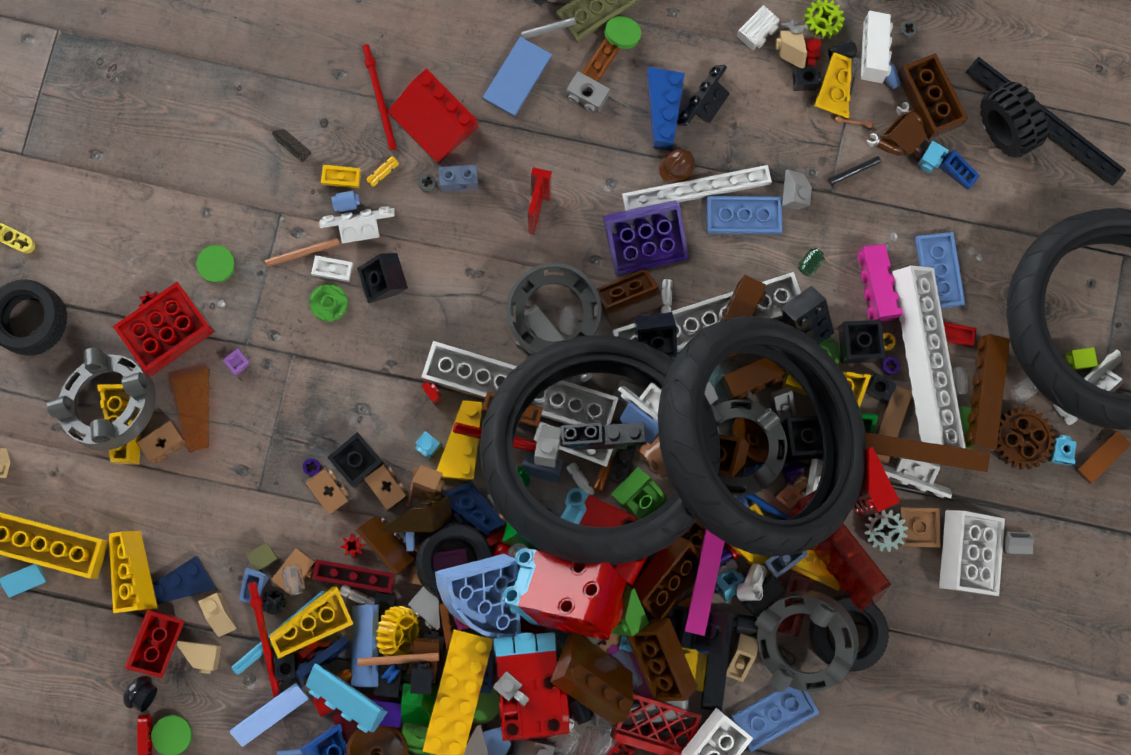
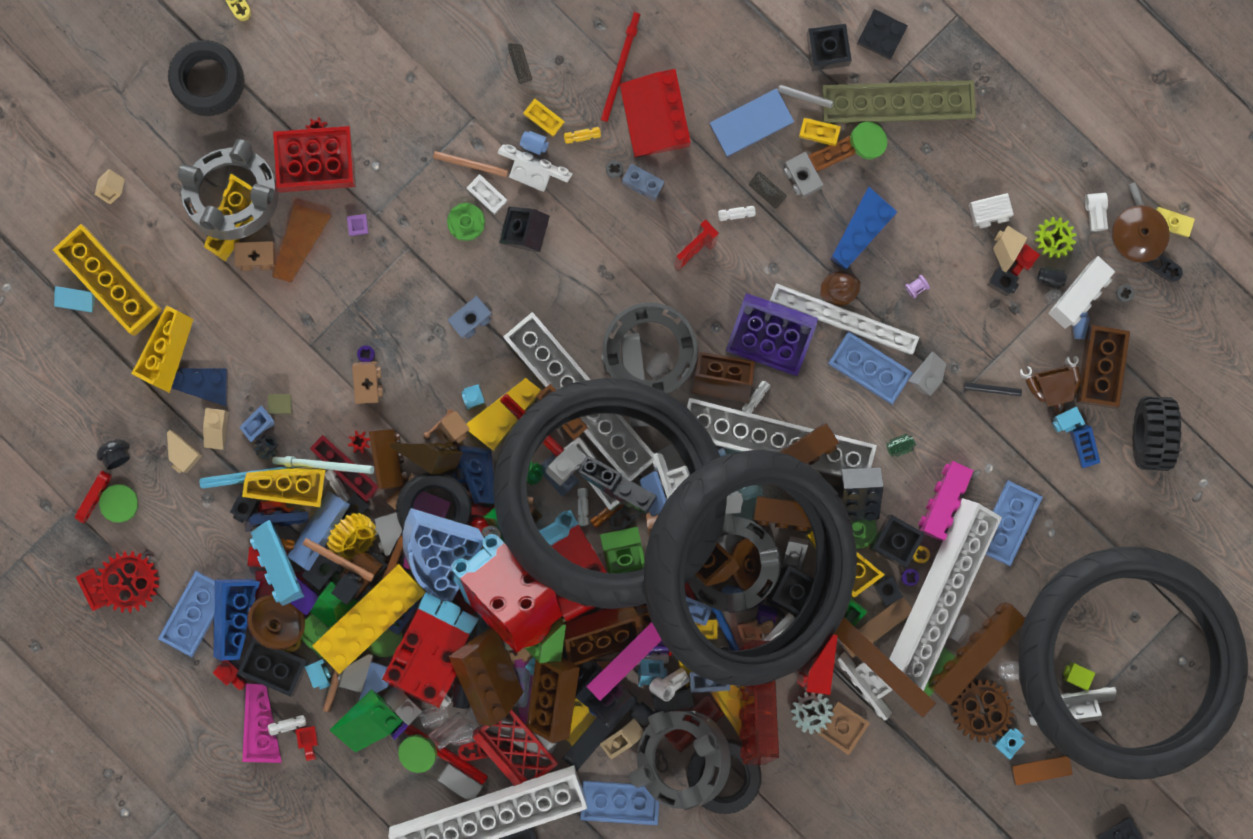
camera: 35 degrees right, 5 degrees up
(154, 643) = (150, 420): red slope -> none
(215, 264) = (391, 128): bright green tile -> none
(256, 602) = (252, 439): red bar -> none
(269, 714) = (207, 537): light blue tile -> none
(293, 580) = (293, 440): clear brick -> none
(299, 558) = (288, 431): medium nougat brick -> none
(304, 600) = (292, 462): none -> light aqua bar
(355, 460) = (405, 372): black brick -> none
(381, 369) = (474, 307): none -> sand blue brick
(388, 498) = (412, 420): medium nougat brick -> none
(391, 673) = (325, 567): blue bush -> none
(411, 540) = (409, 468): light blue plate -> none
(432, 392) = (504, 355): red plate -> none
(509, 687) = (412, 640): light grey plate -> none
(552, 156) = (736, 213): none -> white axle
(565, 122) = (767, 190): none -> clear smoke slope
(578, 49) = (820, 132): none -> yellow plate
(658, 332) = (724, 425): black slope -> none
(707, 99) = (904, 246): black bracket -> none
(739, 125) = (917, 286): none -> lavender bush
(794, 26) = (1021, 229): light grey piece -> none
(835, 88) = (1023, 306): yellow wing -> none
(869, 124) = (1032, 356): nougat hinge -> none
(960, 334) = (987, 587): red tile -> none
(972, 552) = (873, 777): white slope -> none
(1019, 543) = (919, 795): light grey piece -> none
(1058, 130) = (1193, 455): black plate -> none

